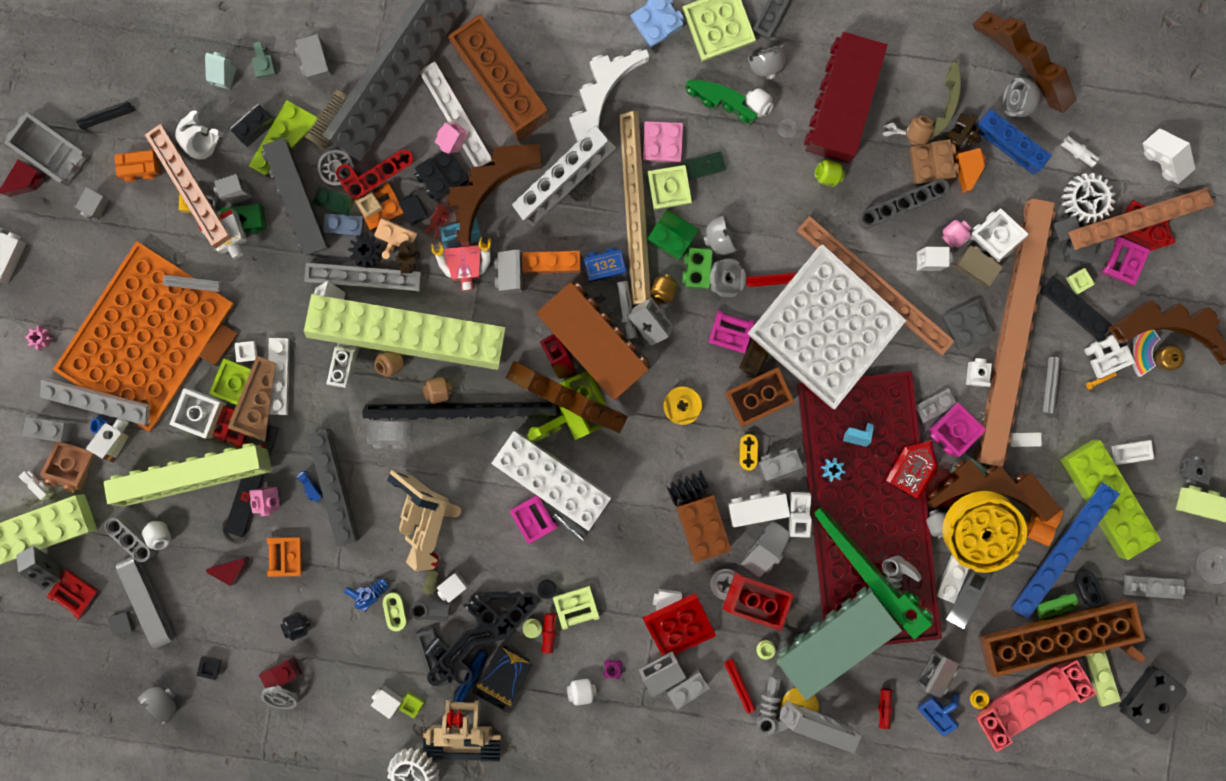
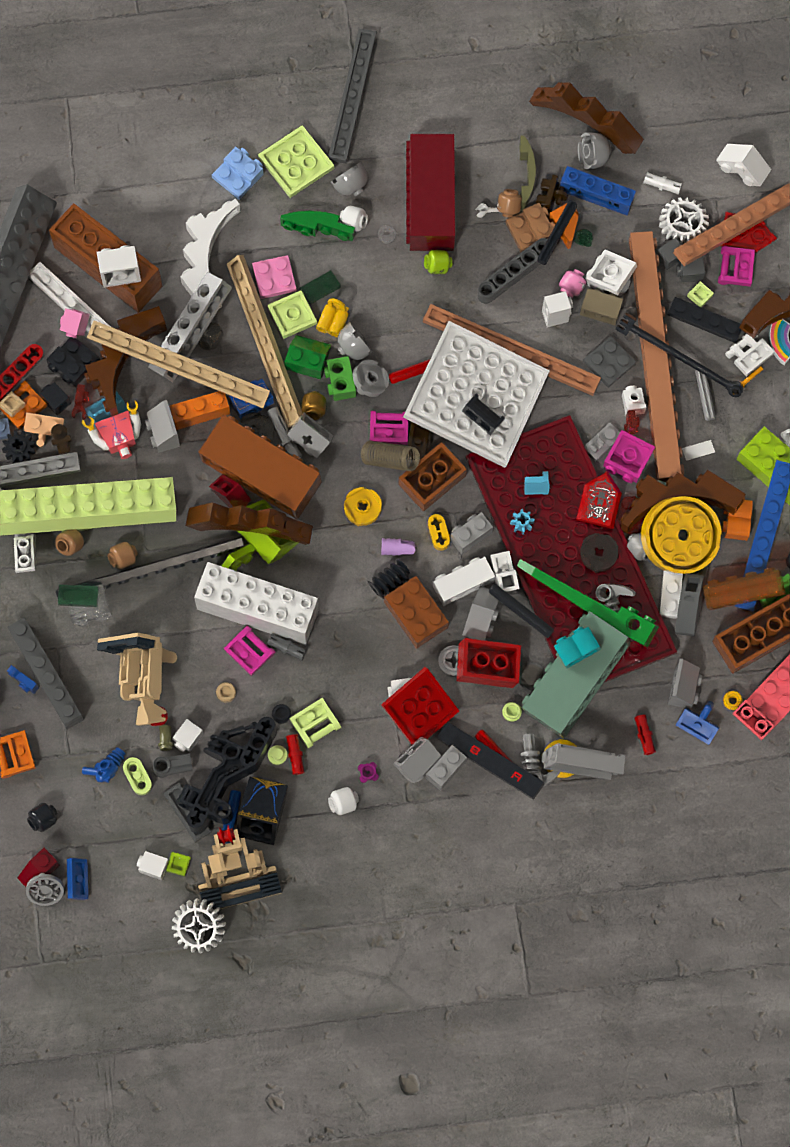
camera: 15 degrees left, 15 degrees down
(313, 694) = (77, 878): none -> blue plate
(379, 429) = (78, 595): none -> clear green plate
(500, 552) = (226, 692): none -> tan tile
(505, 99) = (118, 266): none -> white brick
(540, 214) = (178, 364): none -> tan plate
(704, 457) = (397, 547): none -> lavender hinge
(708, 203) = (333, 317): none -> yellow piece
(713, 358) = (390, 455): none -> dark tan piece
(731, 695) = (491, 761): none -> black tile
(804, 559) = (521, 610): none -> black axle
(827, 353) = (482, 415): none -> black hinge
(848, 626) = (577, 647): none -> teal brick
(908, 525) = (588, 551): none -> clear smoke plate
(959, 178) = (557, 232): none -> black axle
(970, 399) = (632, 422): none -> clear red plate
(983, 188) = (583, 237): none -> clear green plate
(1002, 301) = (629, 326): none -> black hinge
(1027, 601) = (743, 589): none -> clear orange brick

